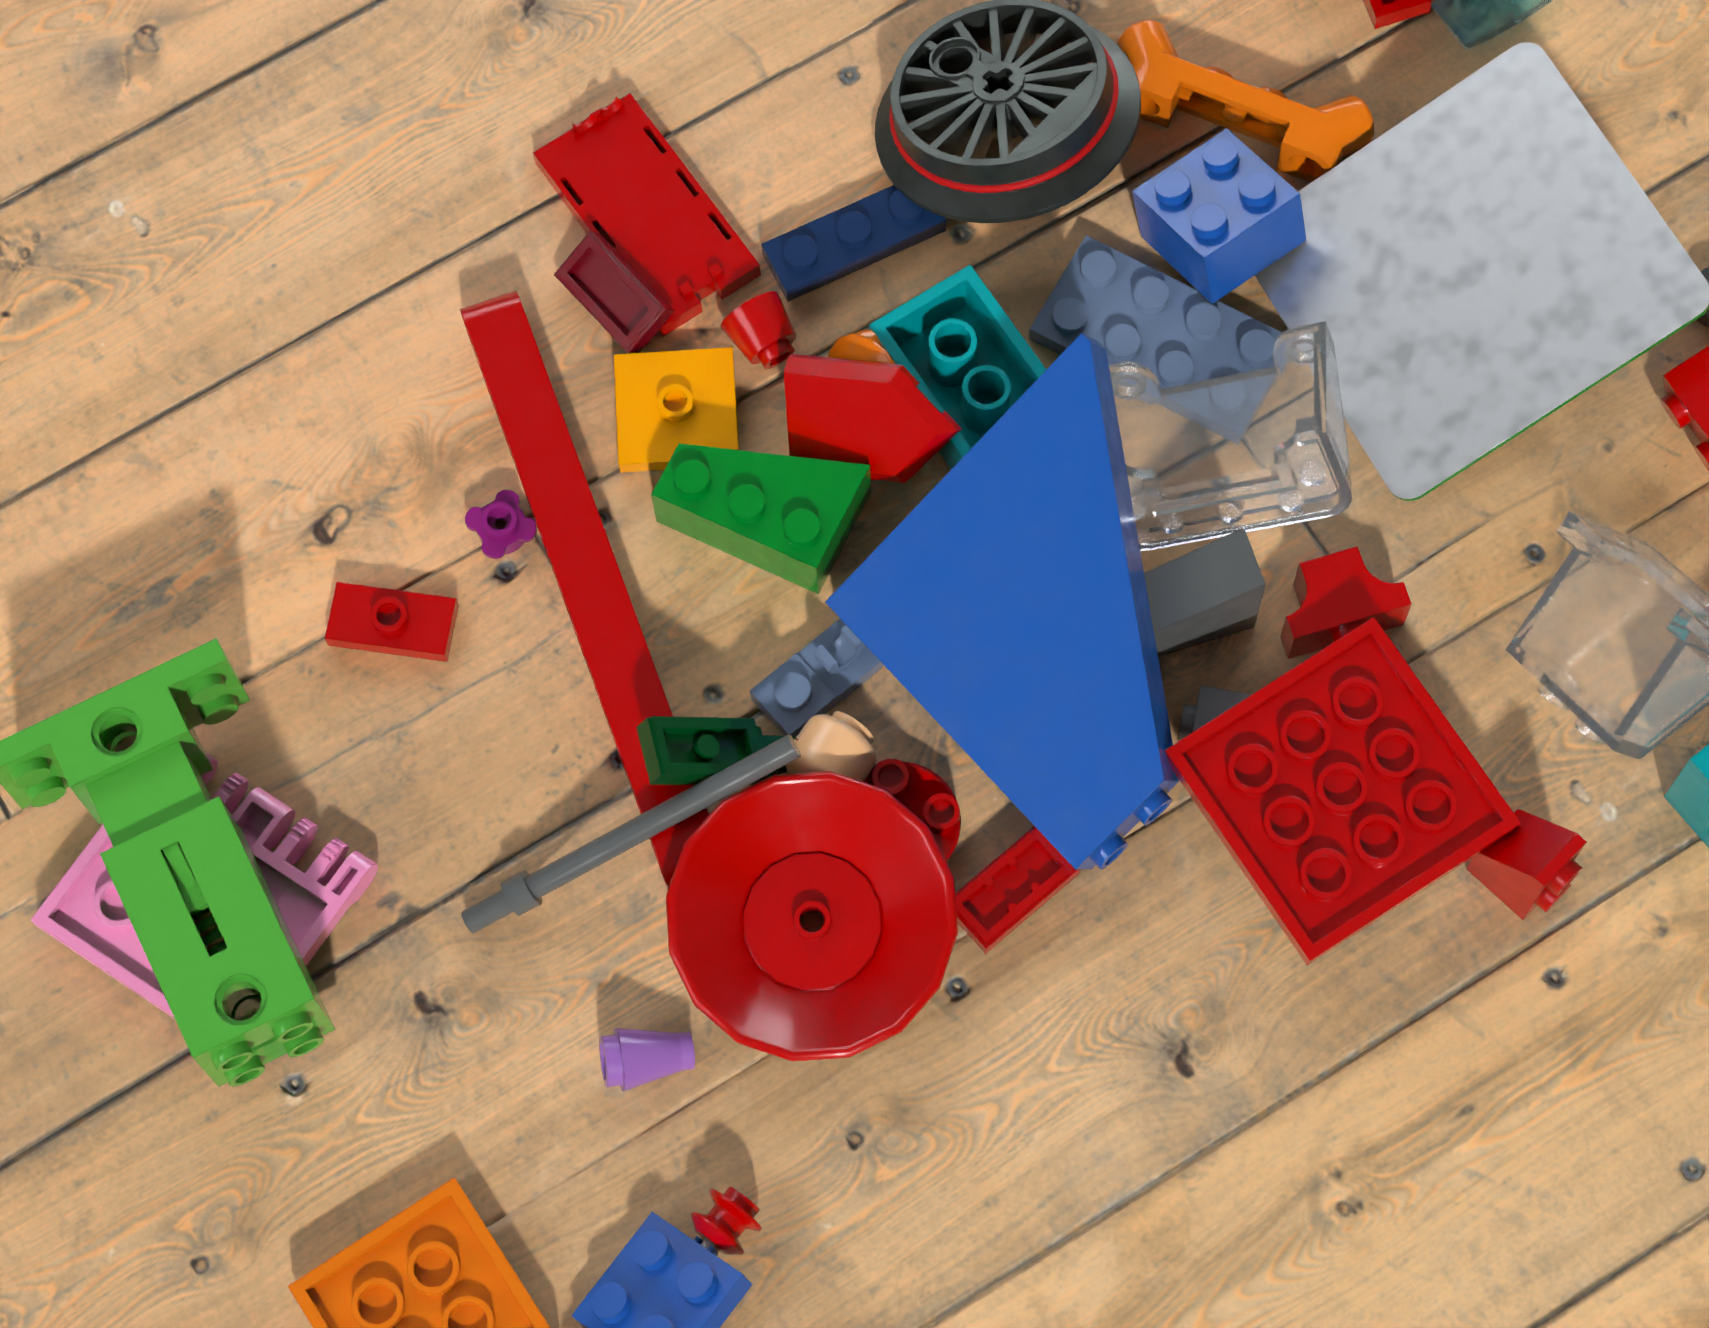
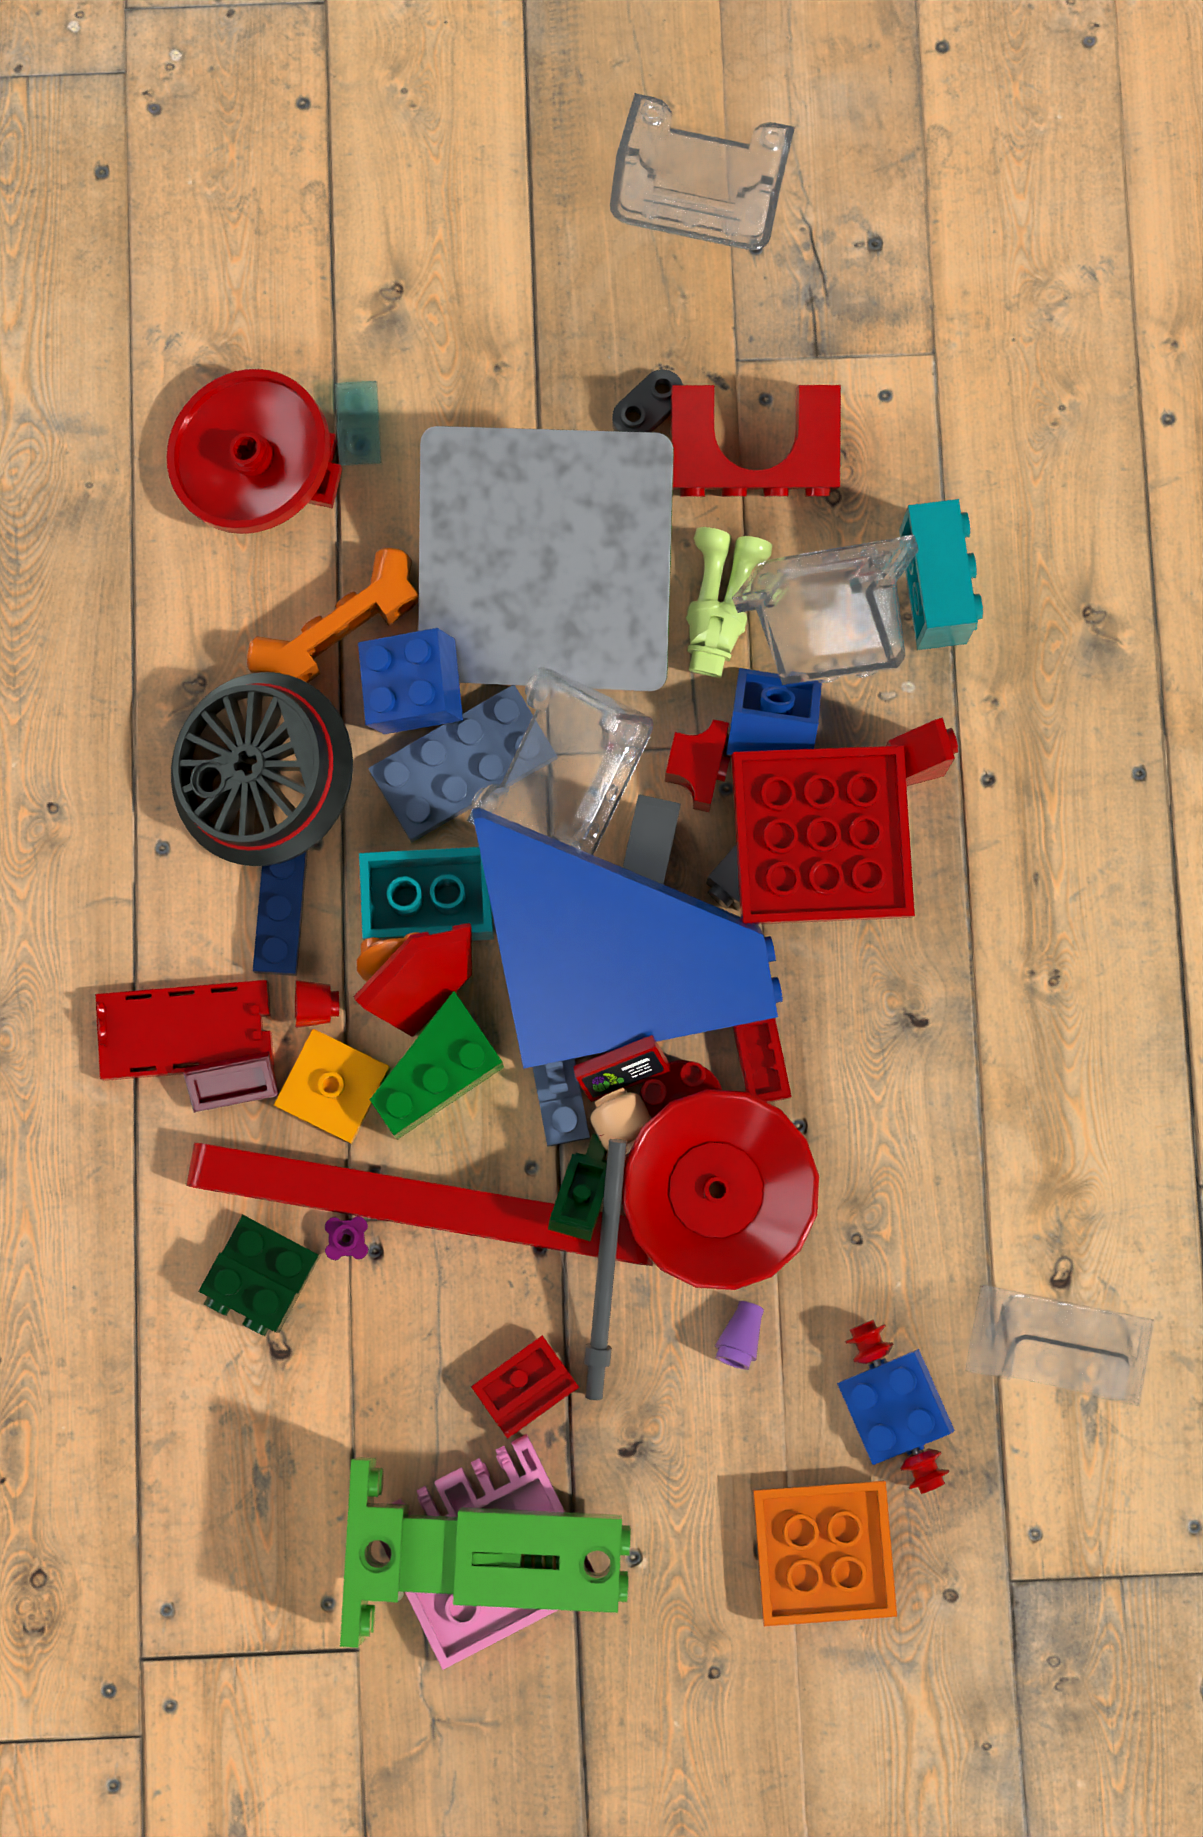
camera: 65 degrees left, 10 degrees up
(391, 621) = (370, 1341): red plate -> none
(397, 452) = (258, 1276): none -> dark green plate
(434, 829) = (524, 1387): none -> red plate
(898, 720) = (621, 1068): none -> tile
(1460, 656) = (773, 714): none -> blue slope
(1524, 525) = (715, 623): none -> yellowish green piece

